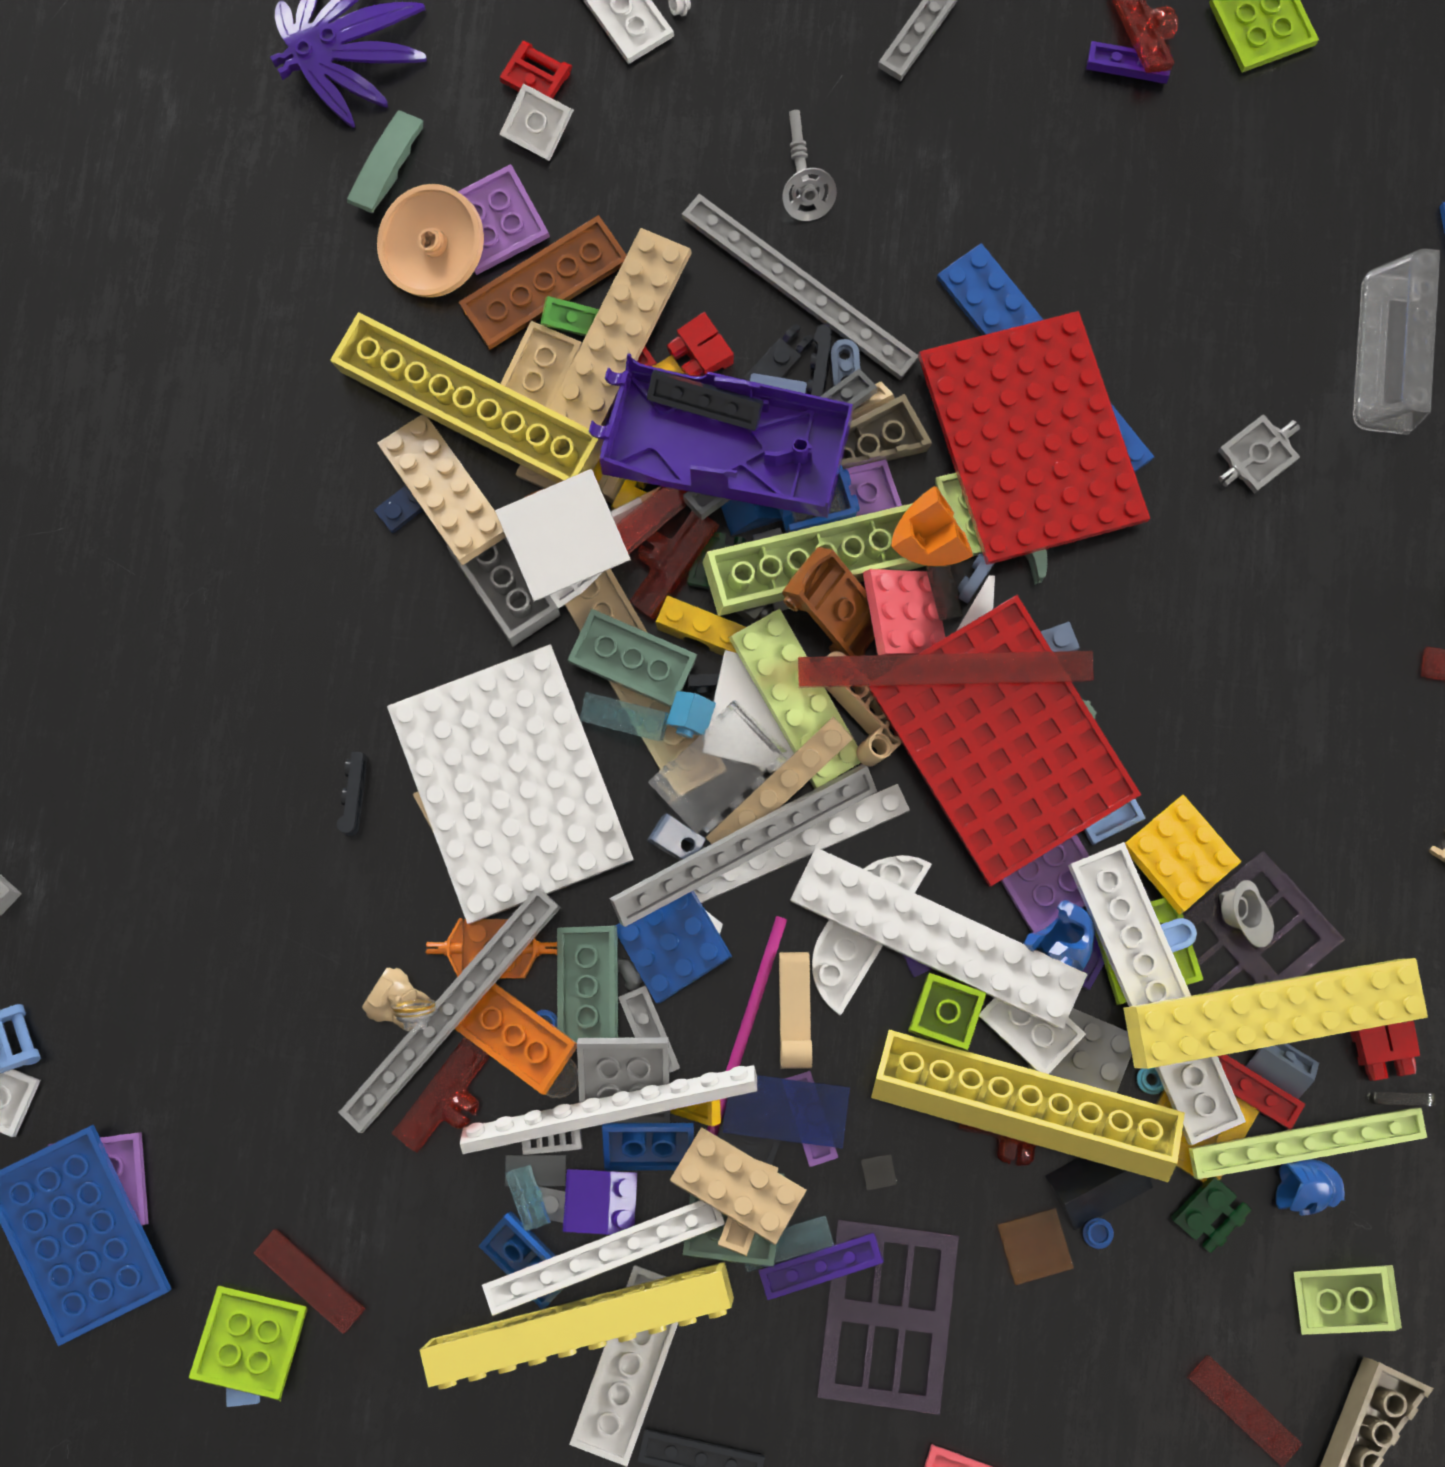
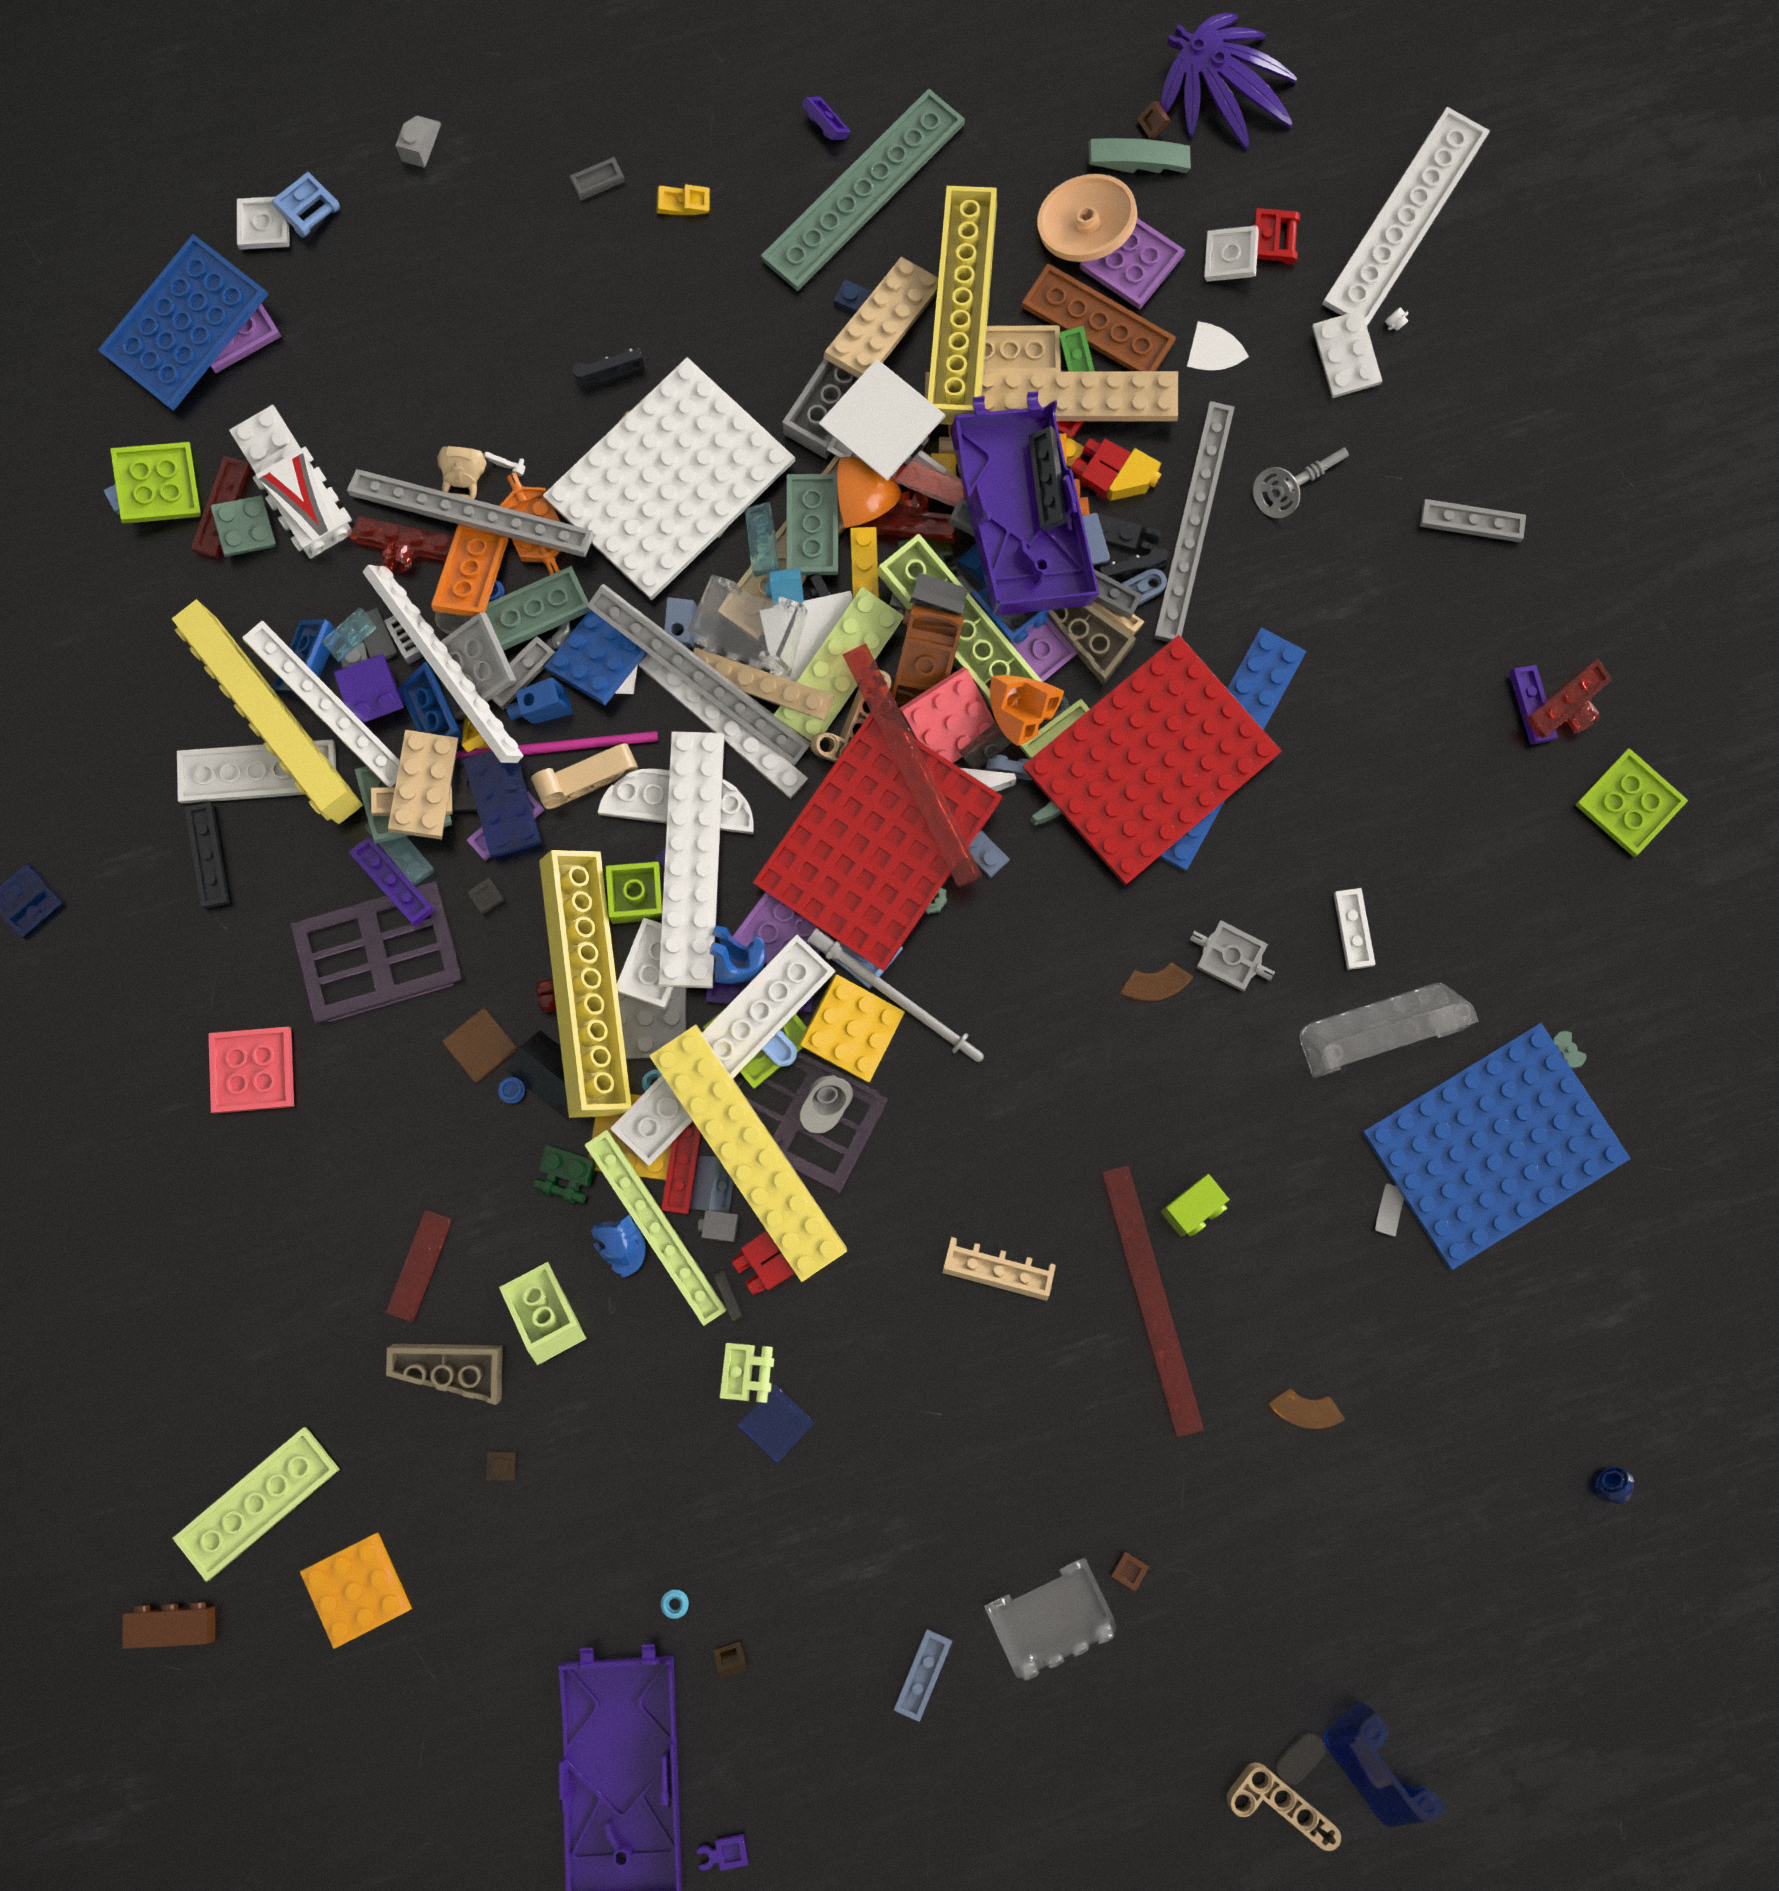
camera: 65 degrees right, 0 degrees up
(130, 715) = (597, 178): none -> dark grey tile
(179, 451) = (826, 118): none -> dark purple plate
(201, 636) = (685, 201): none -> yellow slope
(284, 449) = (862, 189): none -> sand green plate
(320, 1190) = (292, 483): none -> white wedge
(345, 1265) = (243, 526): none -> sand green plate
(353, 130) = (1153, 119): none -> reddish brown plate
(414, 1013) = (452, 484): clear piece -> none
(418, 938) = (518, 468): none -> white piece
(624, 186) = (1215, 349): none -> white sticker
(624, 591) = (863, 492): none -> orange brick
(694, 64) = (1347, 354): none -> white plate
(698, 1013) = (541, 702): none -> blue torso
(727, 316) = (1135, 476): none -> yellow slope
(782, 561) = (938, 594): none -> dark grey panel
(1096, 835) = (834, 951): none -> light grey bar
(1257, 538) = (1158, 985): none -> clear orange tile
(1280, 328) = (1354, 929): none -> white plate
(1332, 1077) = (718, 1226): none -> flat silver brick

